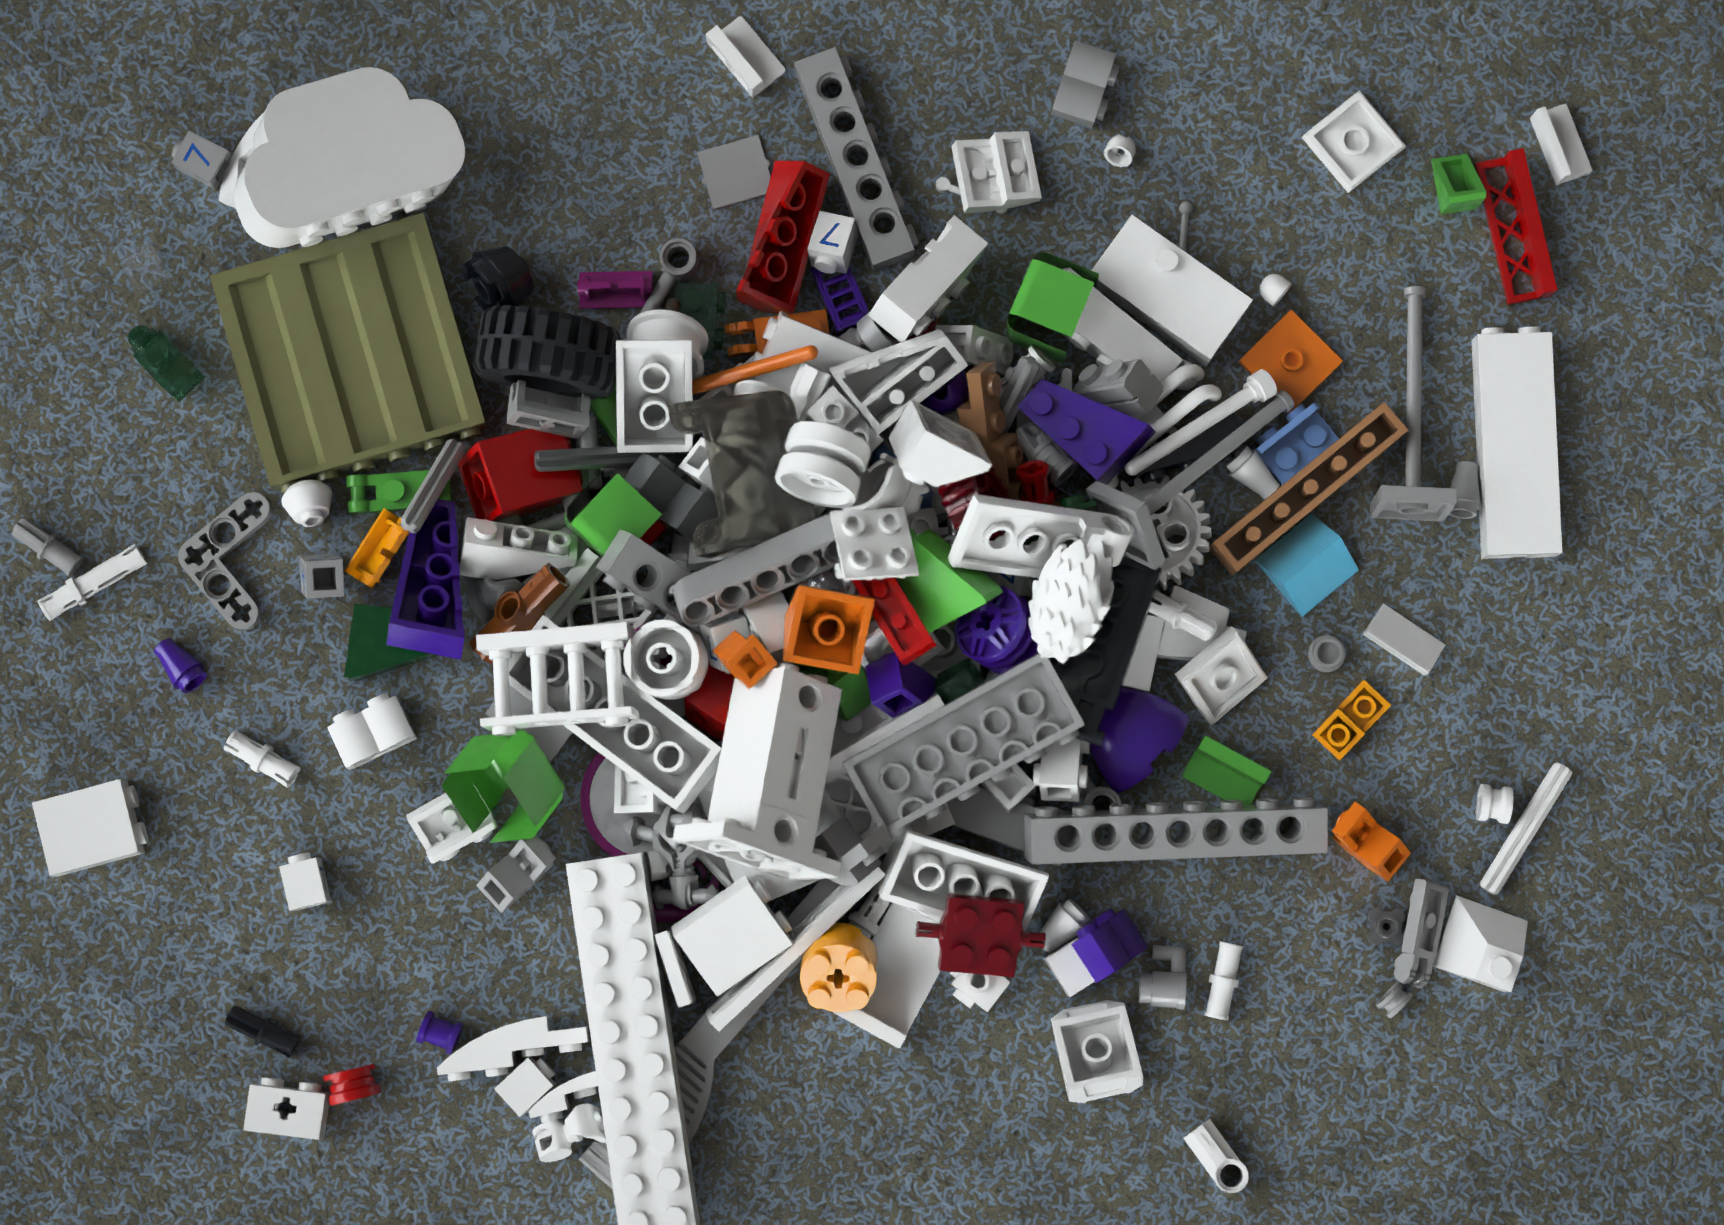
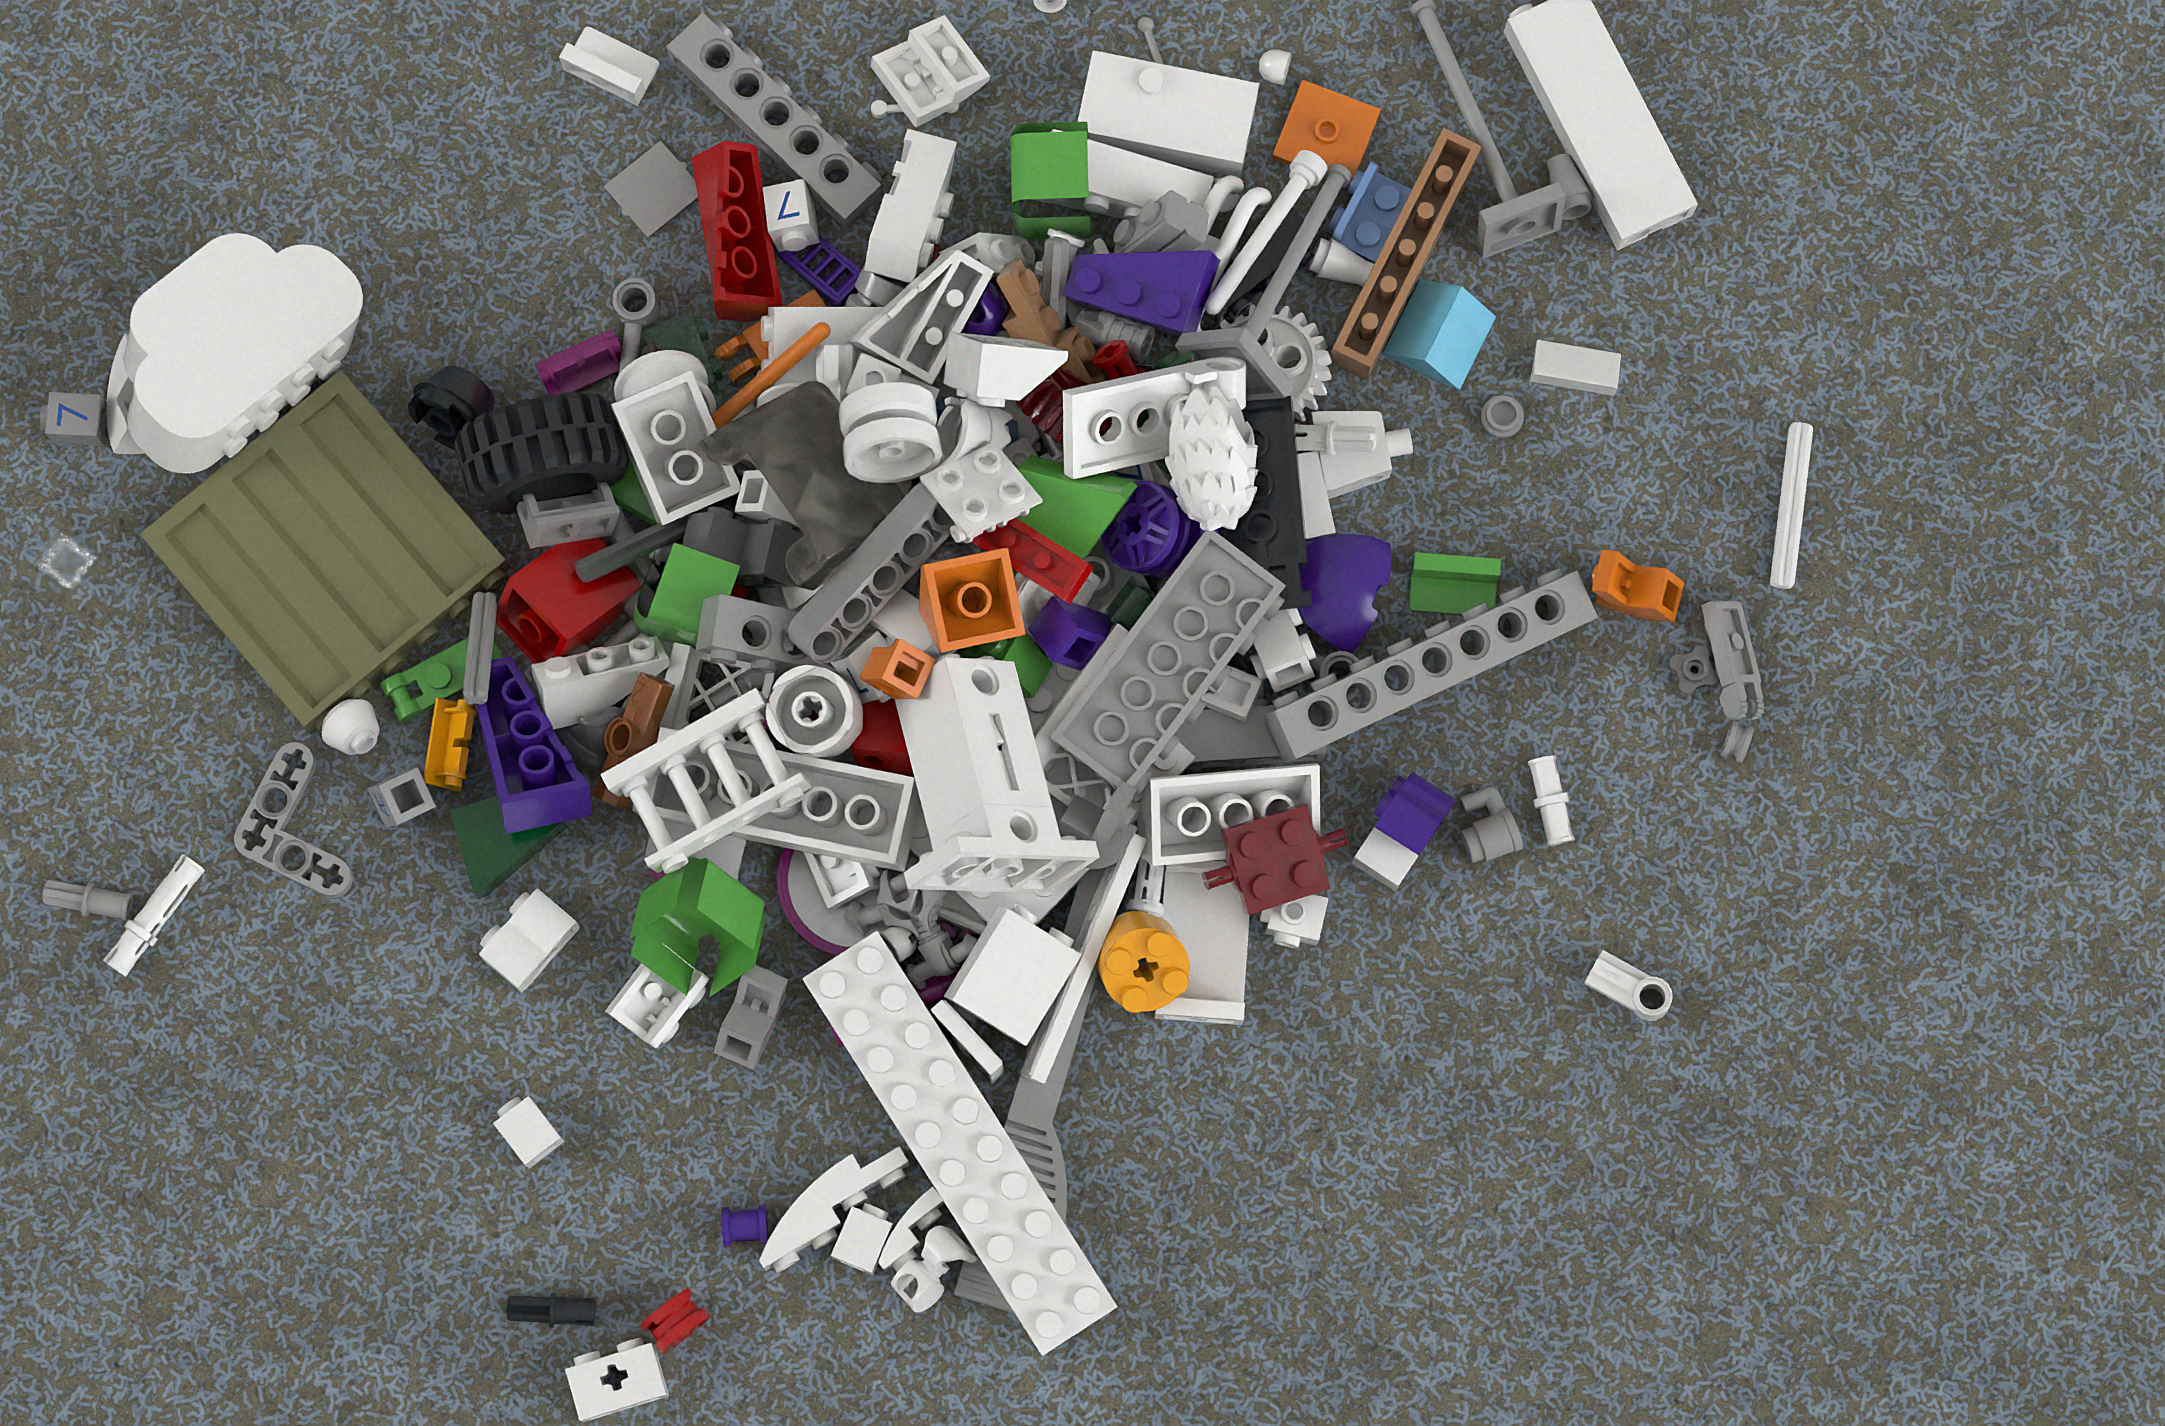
camera: 25 degrees left, 5 degrees down
(90, 827) = (268, 1175): white brick -> none
(164, 361) = (130, 647): clear green brick -> none
(181, 667) = (290, 962): dark purple cone -> none
(262, 758) = (421, 1021): white pin -> none
(1063, 924) = (1357, 817): white cone -> none
(1096, 1051) = (1453, 933): white slope -> none
(1221, 675) = (1403, 484): white tile -> none
(1351, 719) = (1559, 472): light orange slope -> none
(1482, 944) = (1802, 645): white slope -> none
(1494, 803) = (1747, 493): white wheel -> none

